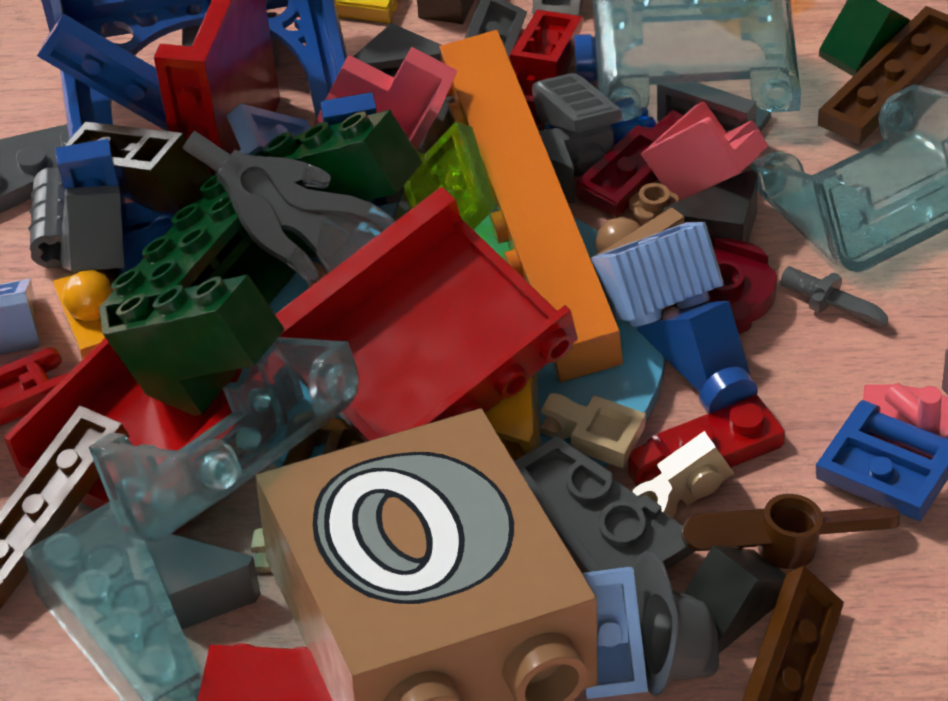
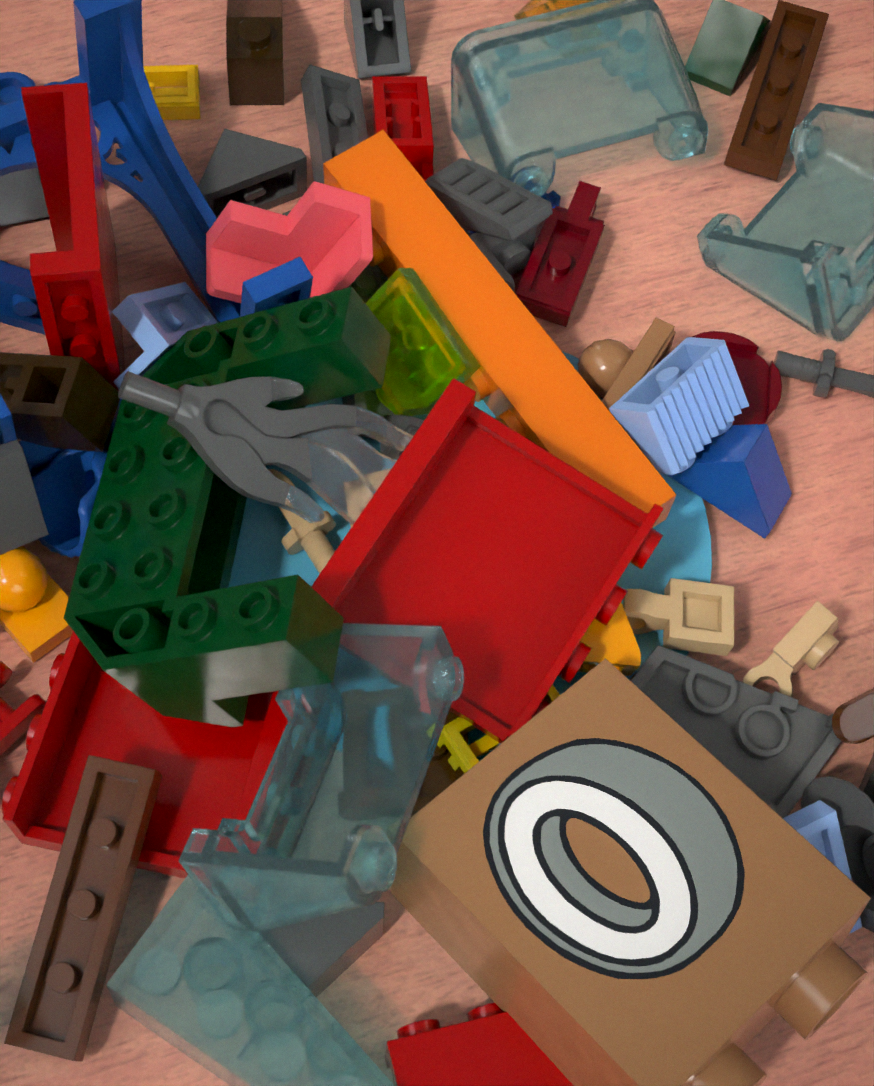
camera: 30 degrees left, 15 degrees up
(585, 57) = (451, 130): blue tile -> none
(651, 202) = (602, 314): medium nougat plate -> none
(701, 153) = (648, 235): coral panel -> none
(725, 207) = (689, 301): pearl dark grey slope -> none
(726, 388) = (790, 529): blue tile -> none
(727, 107) = (622, 171): dark grey panel -> none
(737, 431) = (805, 573): red hinge -> none

